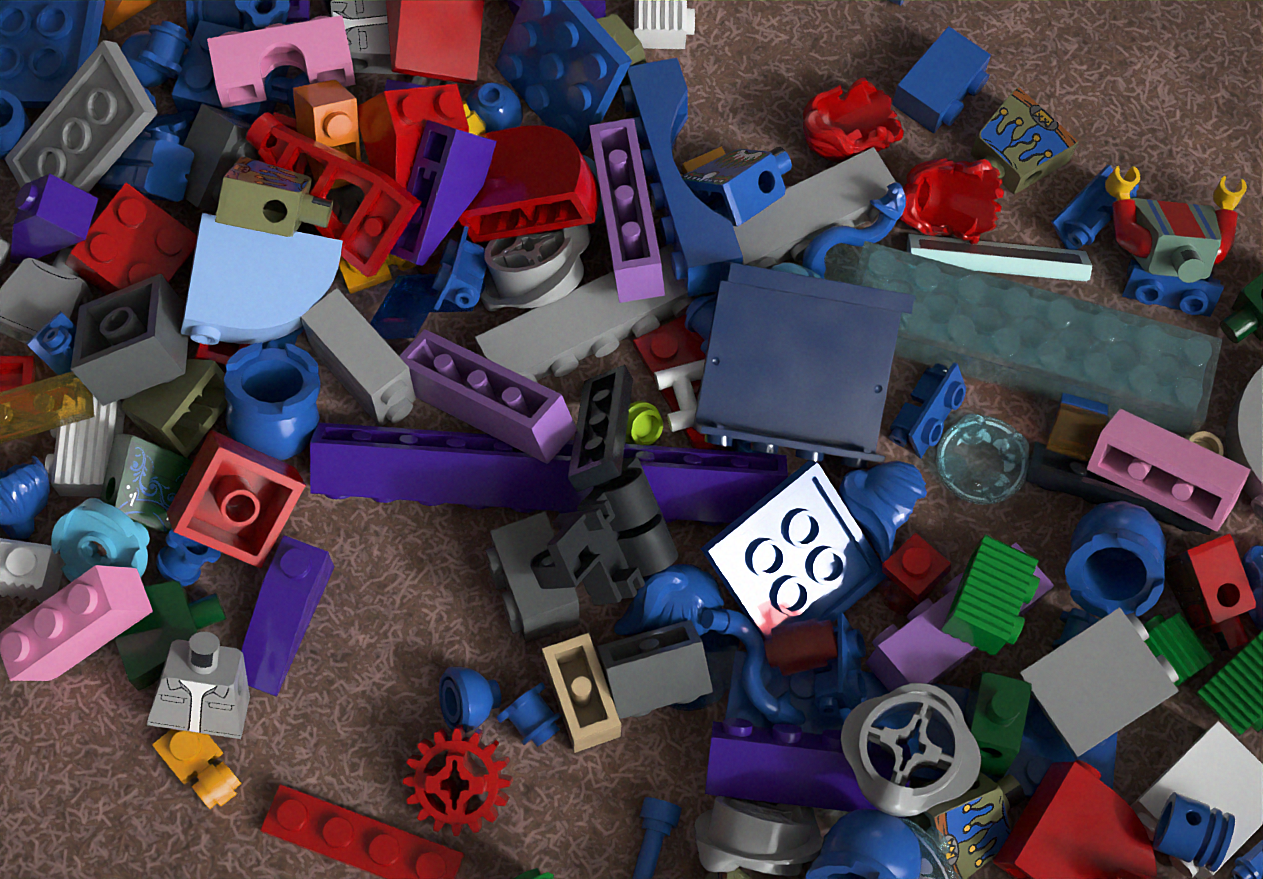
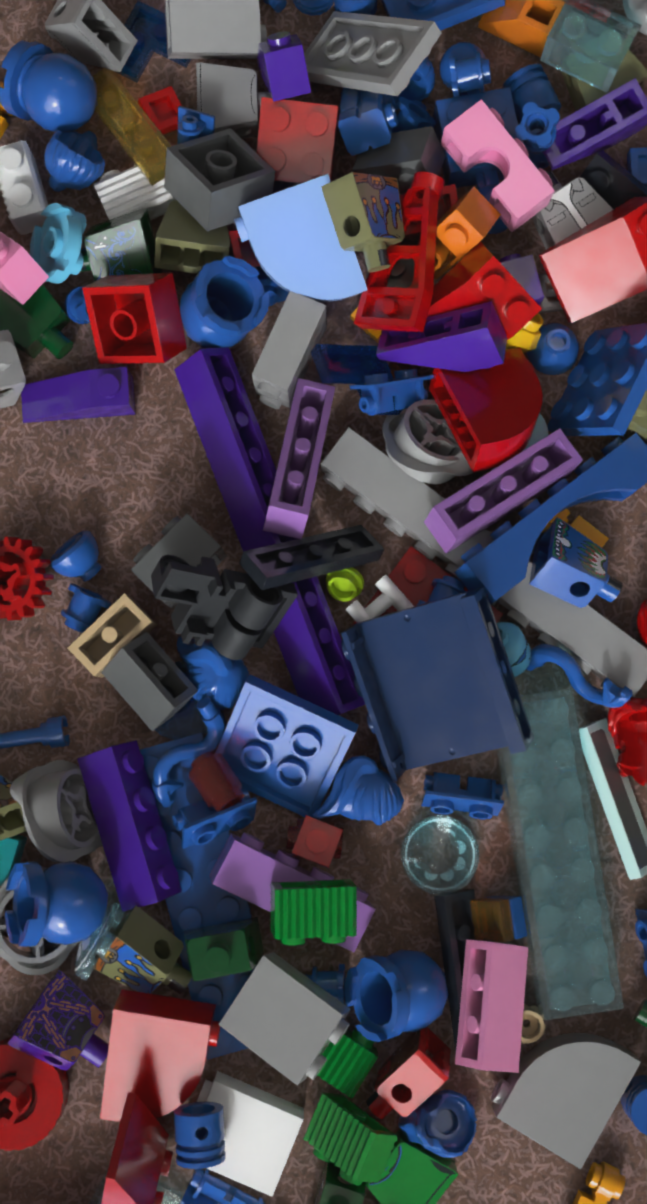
camera: 70 degrees right, 15 degrees up
(892, 795) = (114, 899): light grey piece -> none

